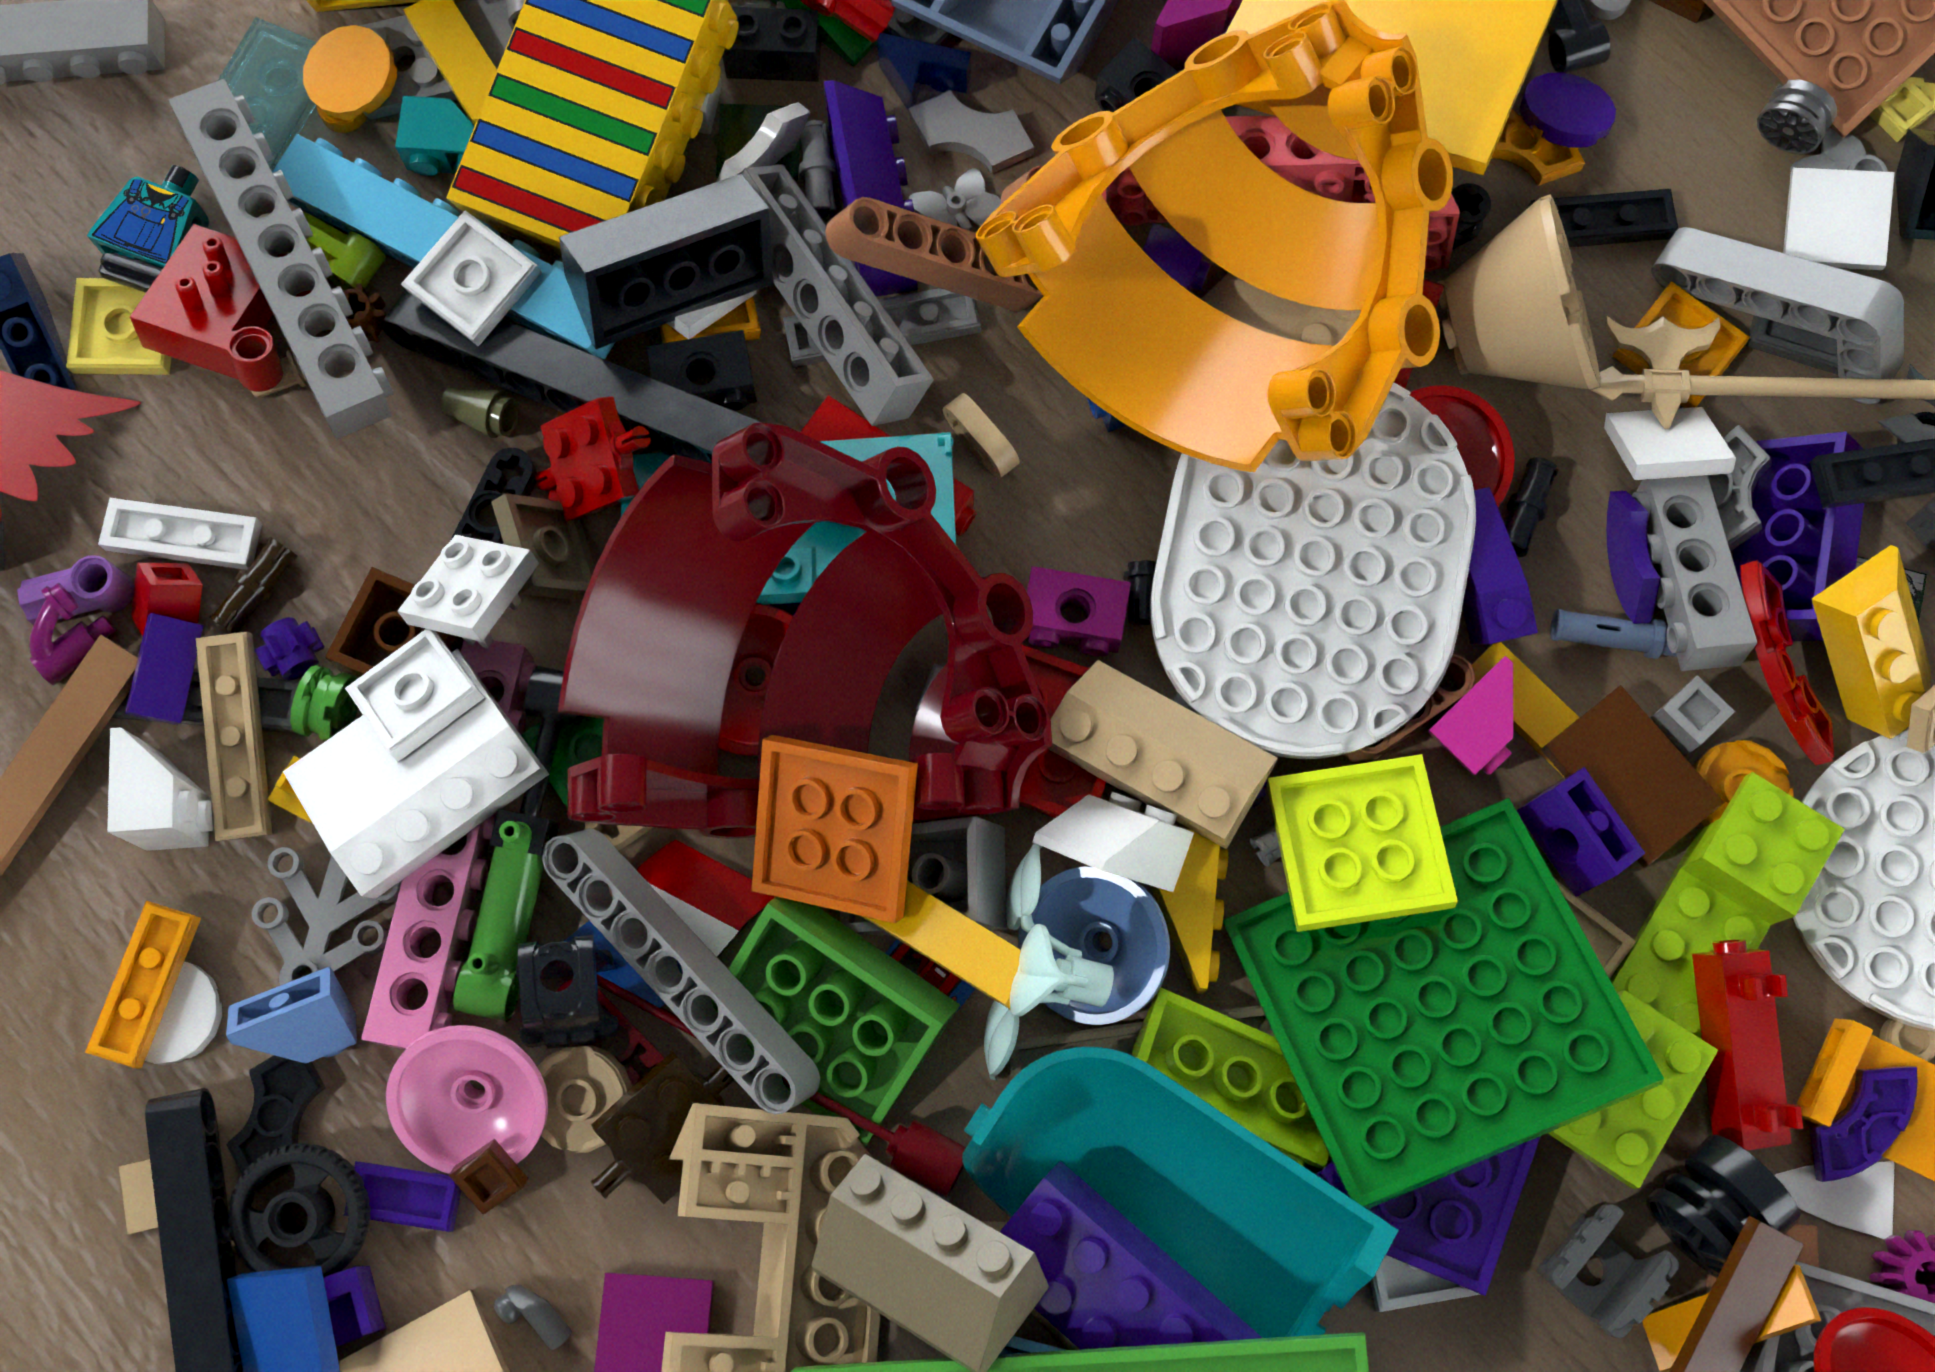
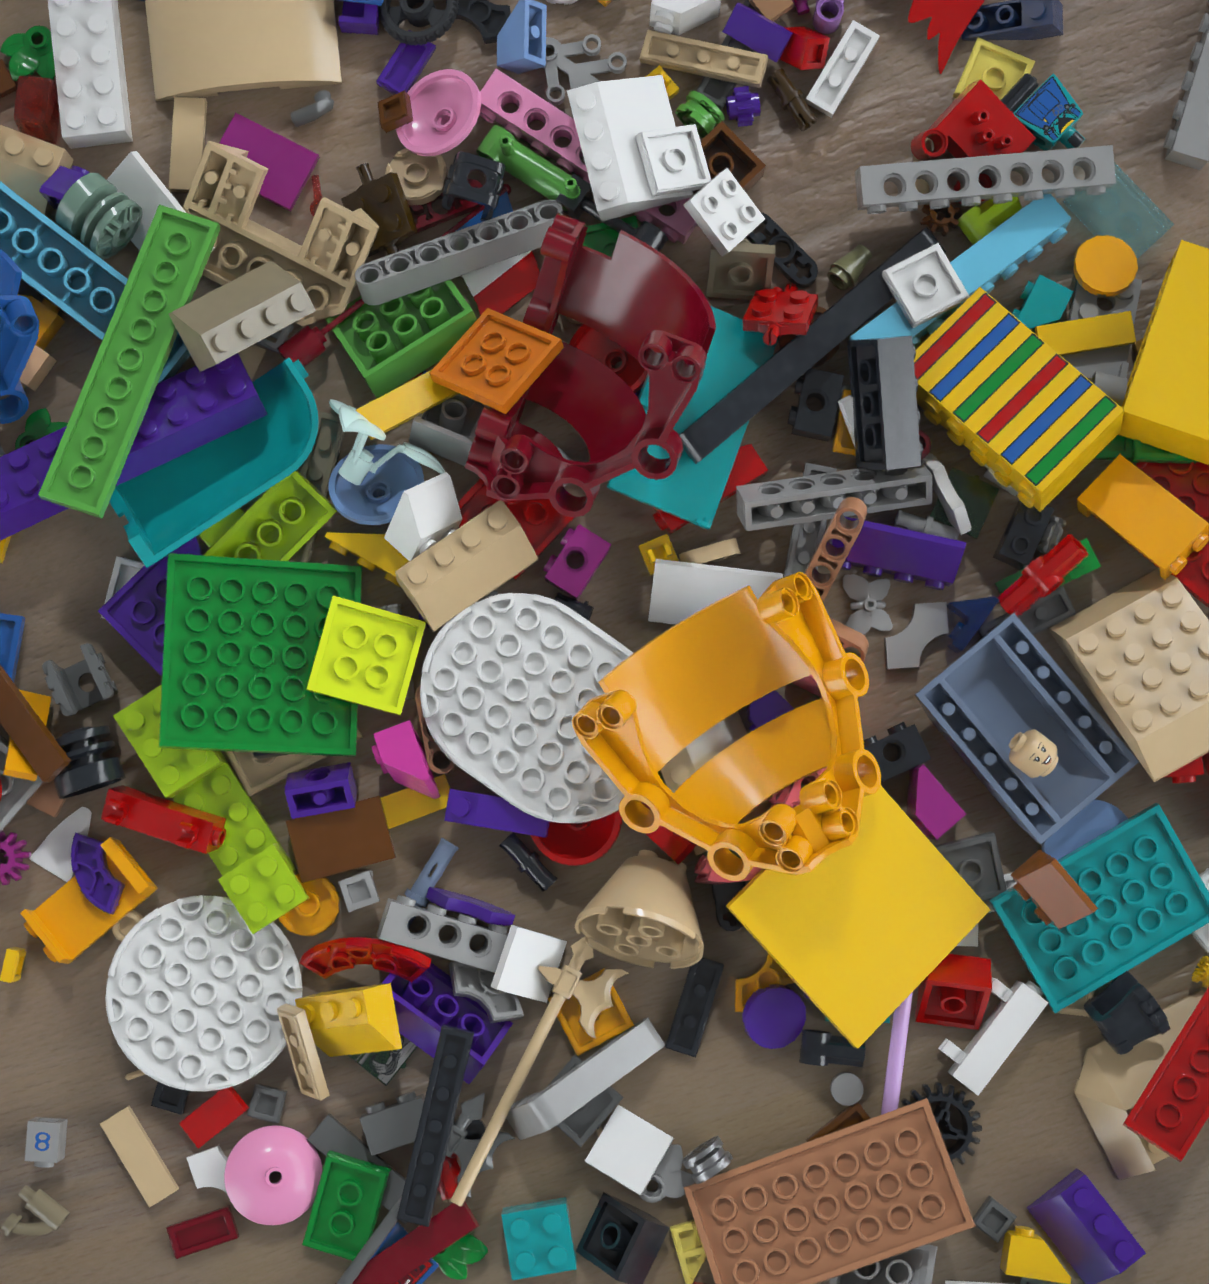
camera: 110 degrees right, 10 degrees up
(672, 1246) = (317, 193): none -> clear red hand
(1010, 508) = (657, 549): none -> yellow tile
(1039, 411) = (686, 587): none -> white tile

